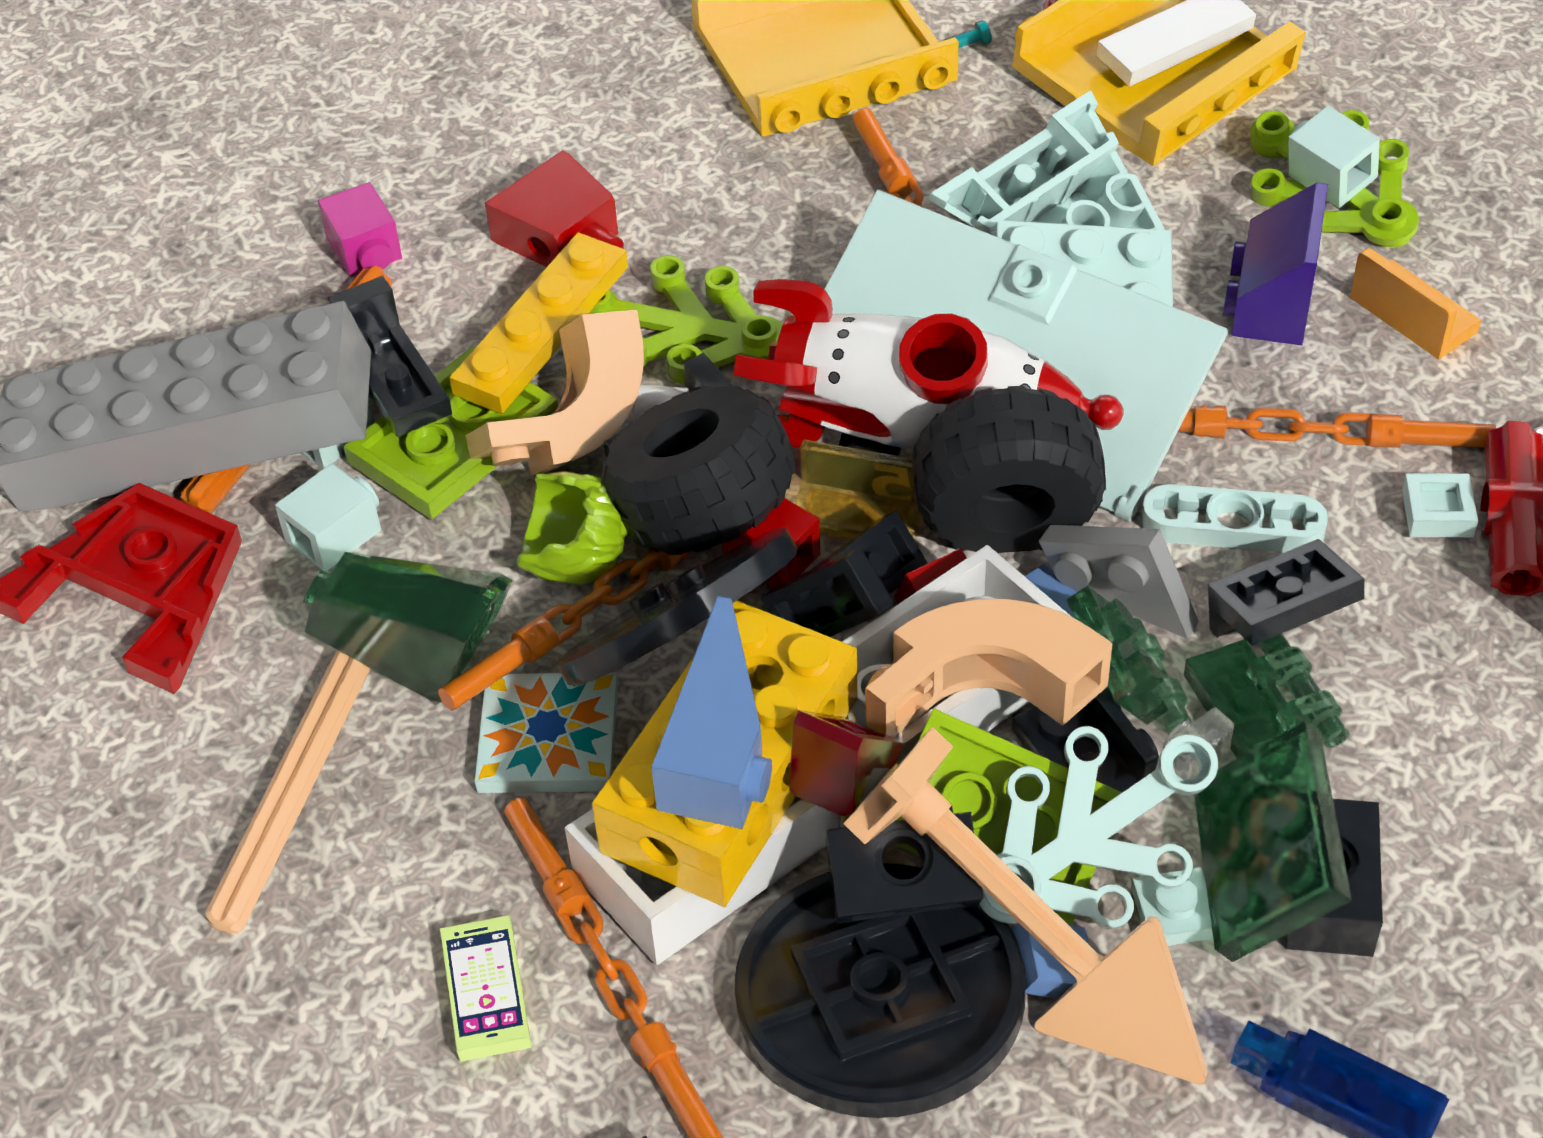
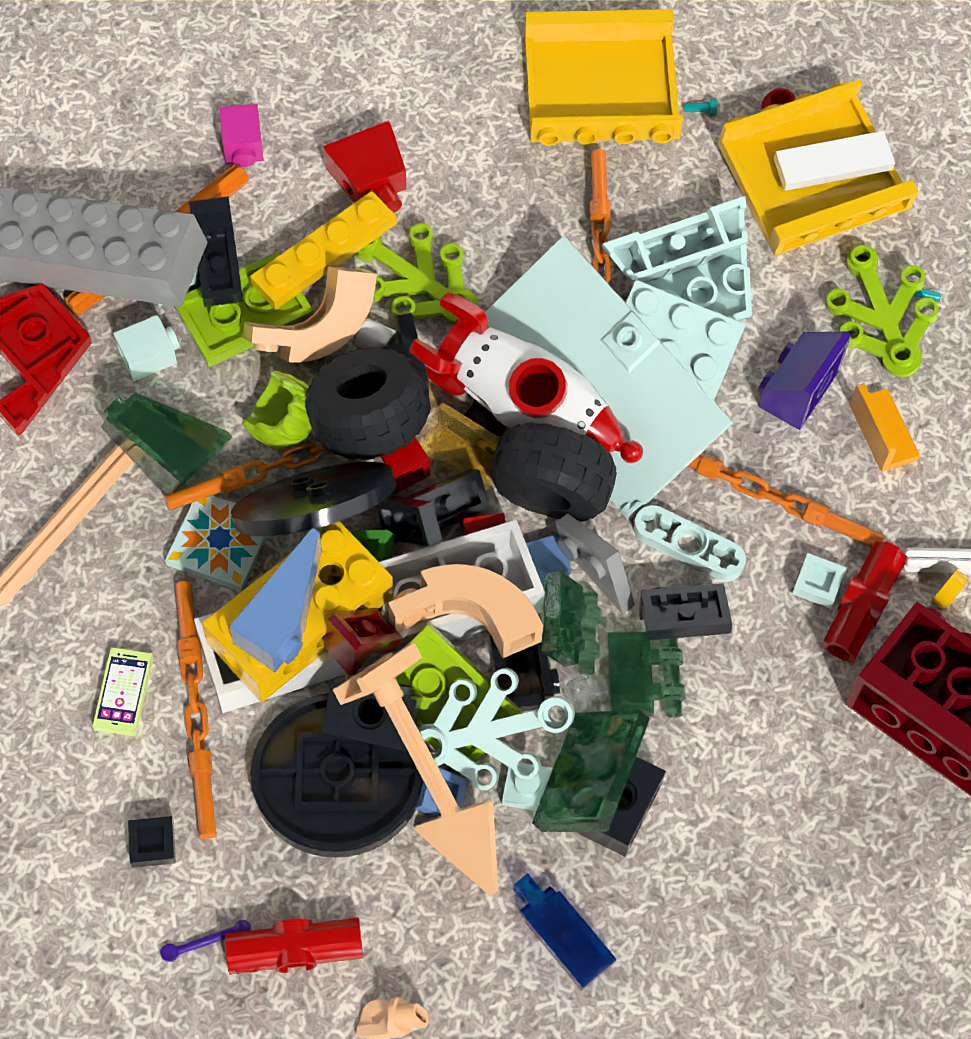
camera: 15 degrees right, 15 degrees up
(1334, 153) = (883, 300): light aqua brick -> none

